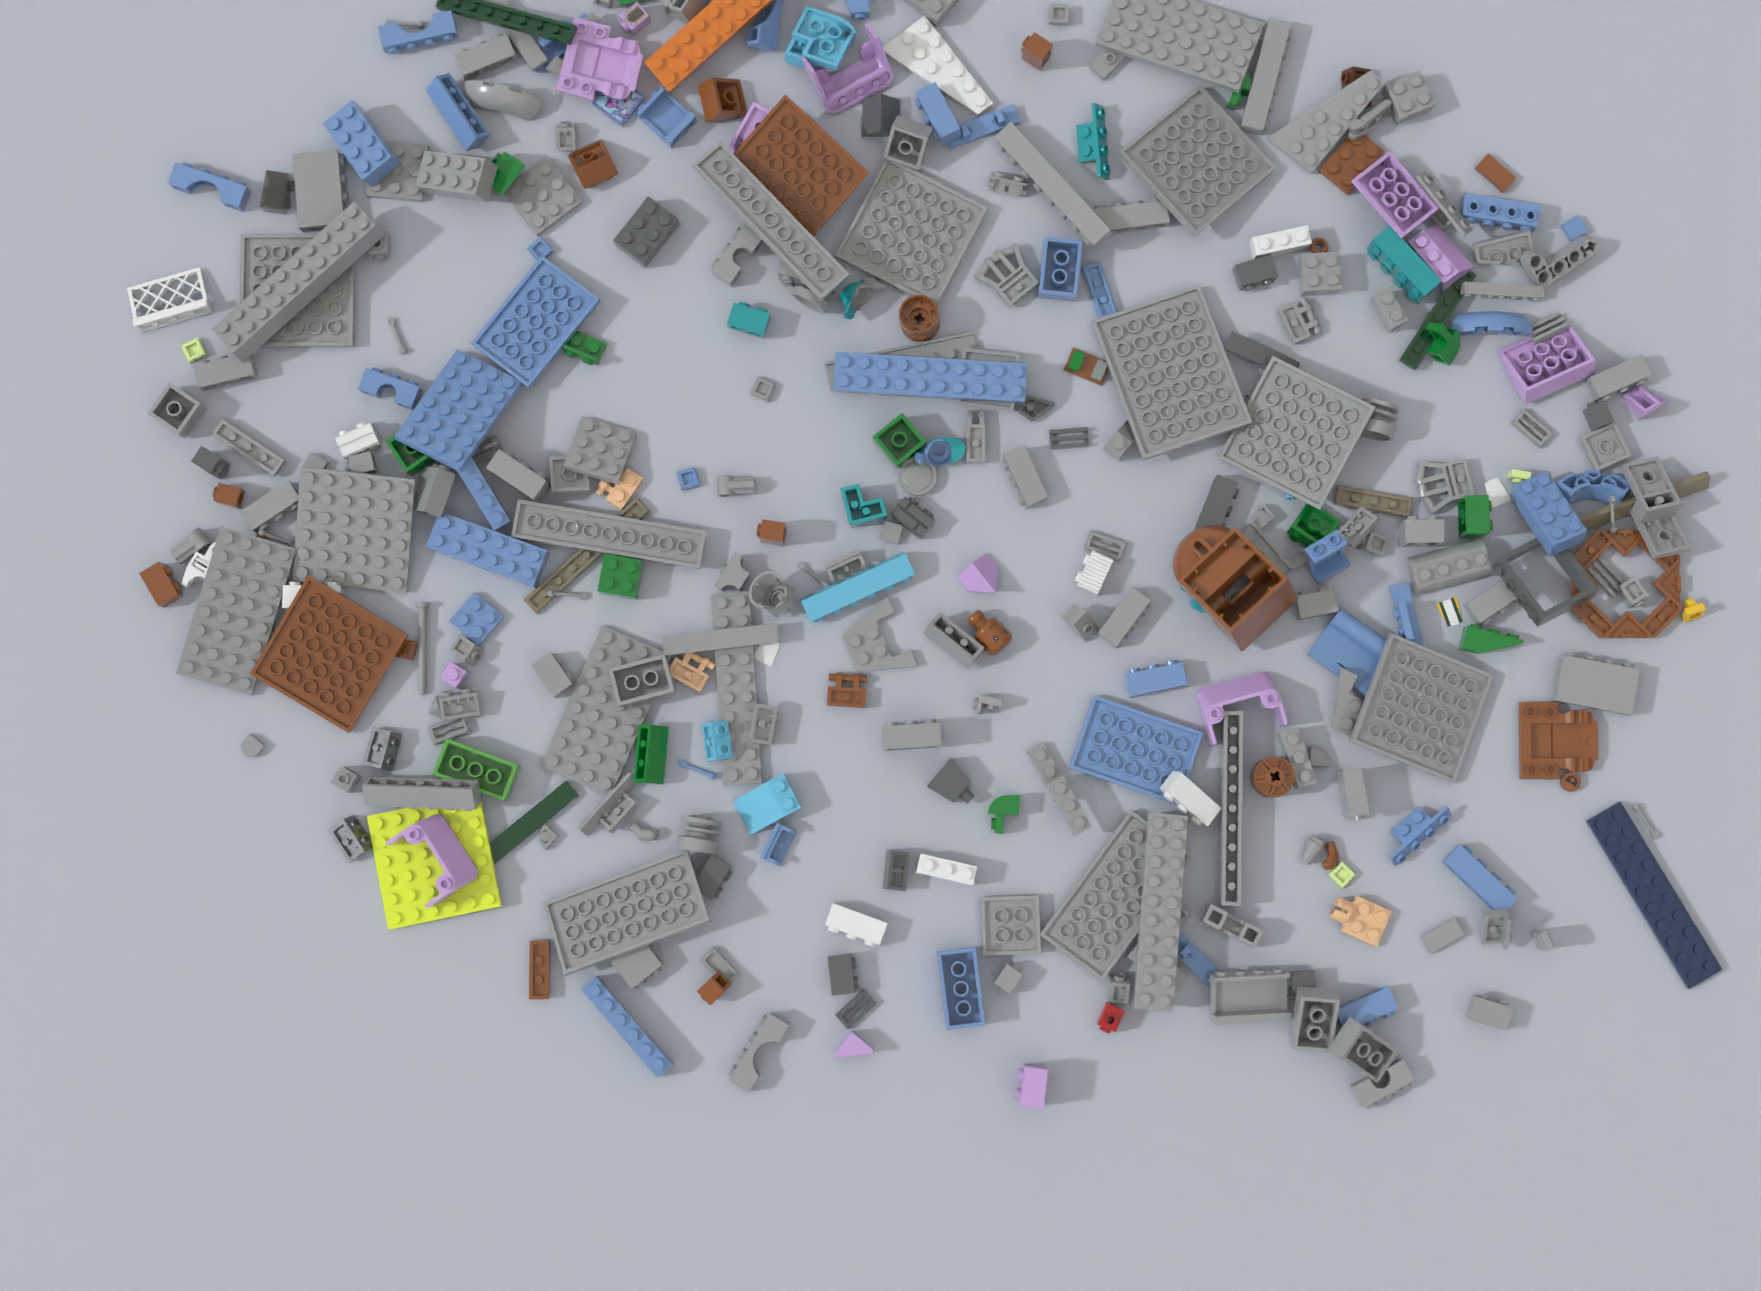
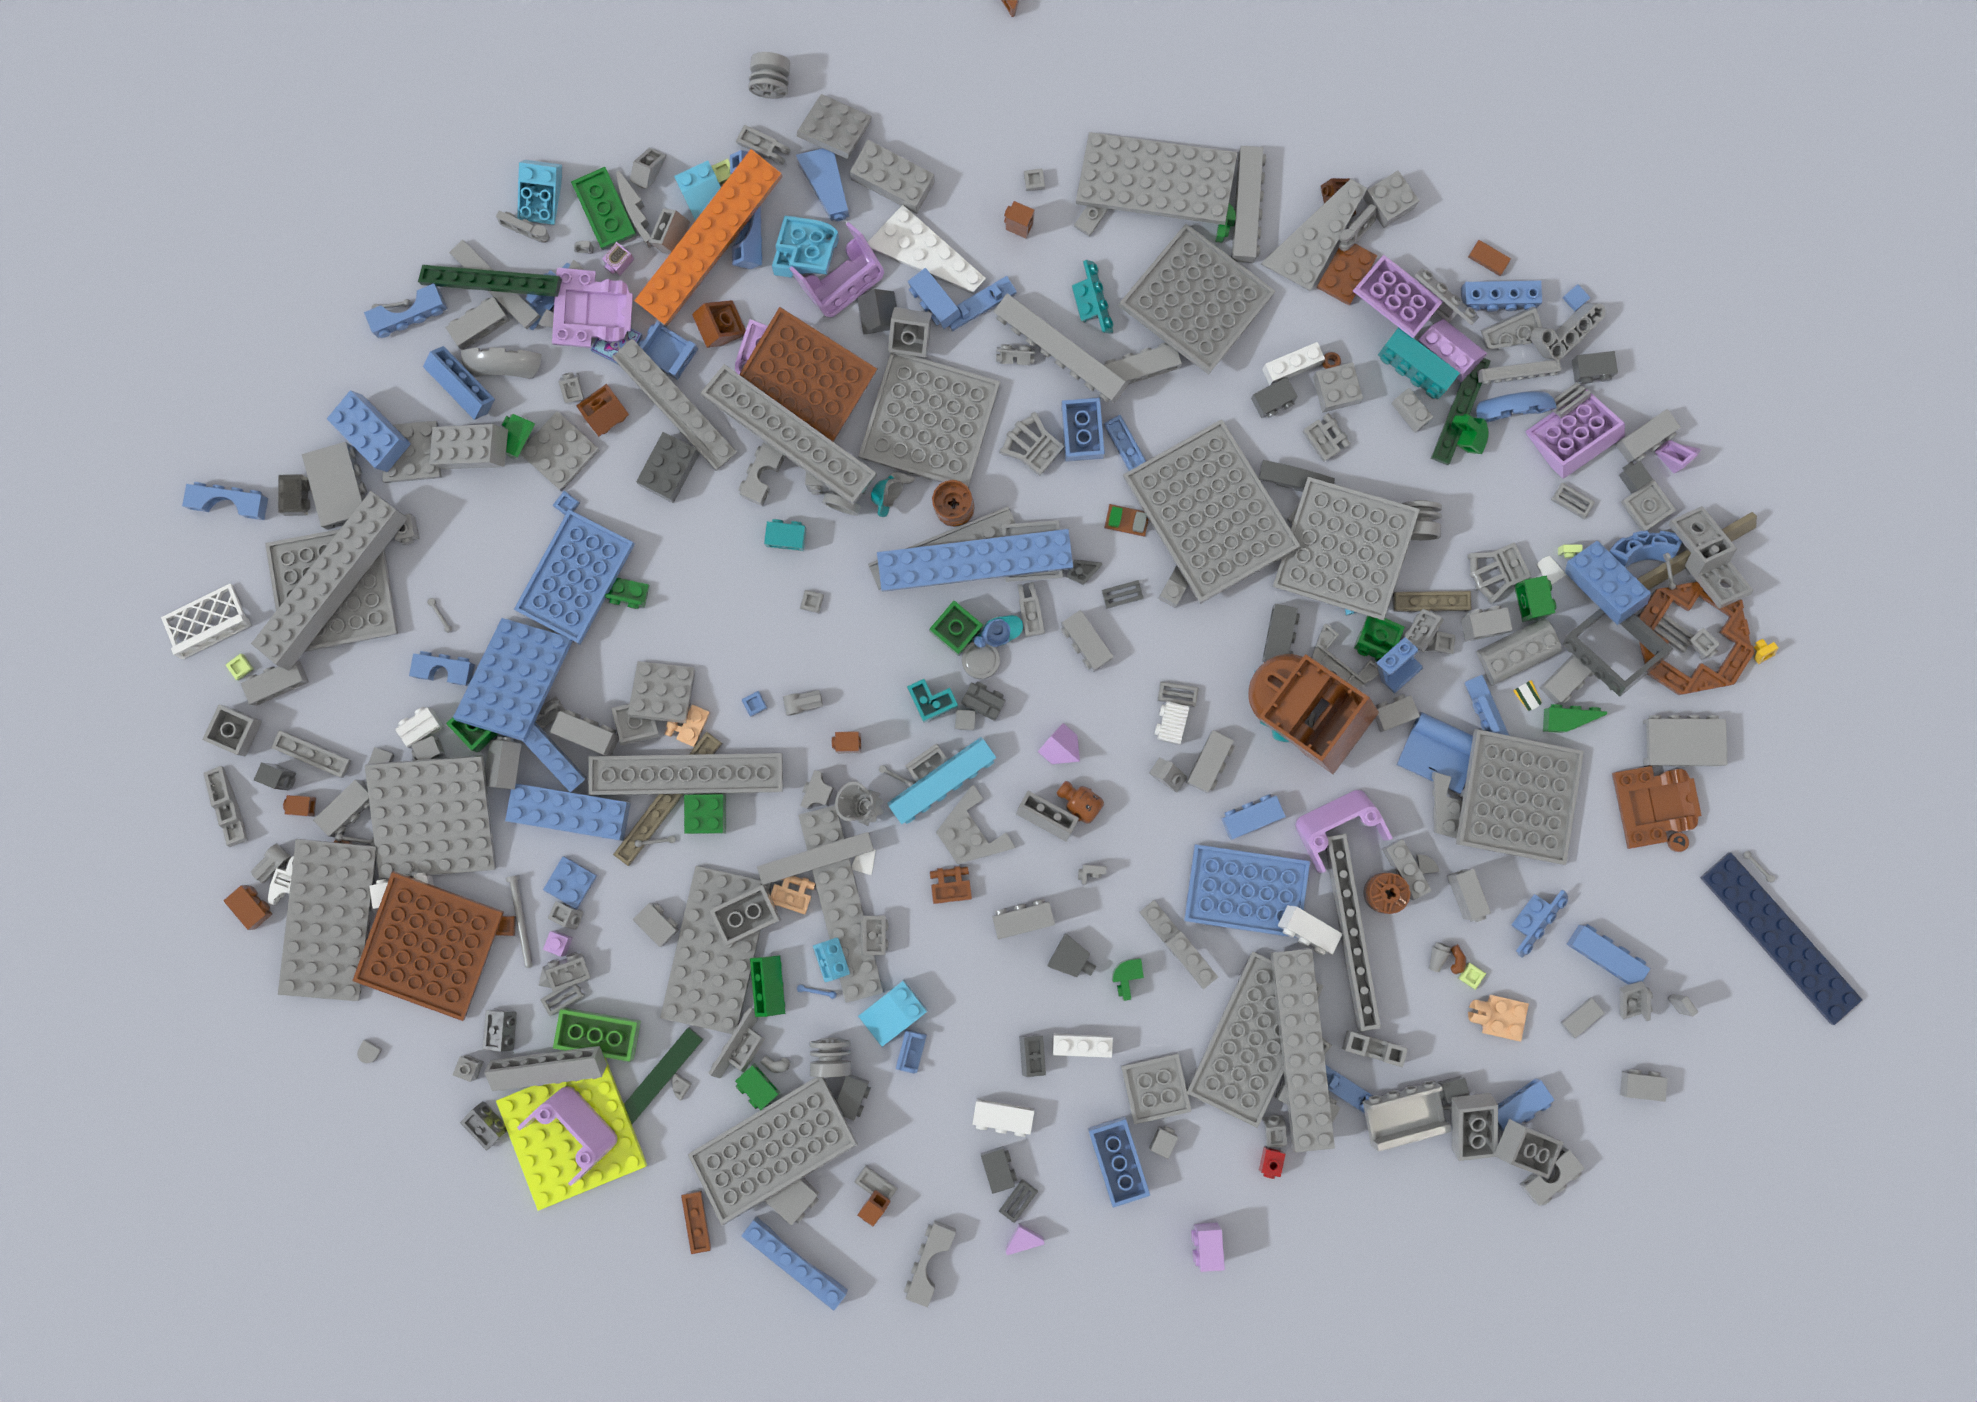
camera: 15 degrees left, 0 degrees up
(156, 482) = (225, 806): none -> light grey slope
(622, 850) = (757, 1087): none -> green brick
(664, 171) = (674, 404): none -> light grey plate
(1578, 300) = (1594, 367): none -> dark grey brick

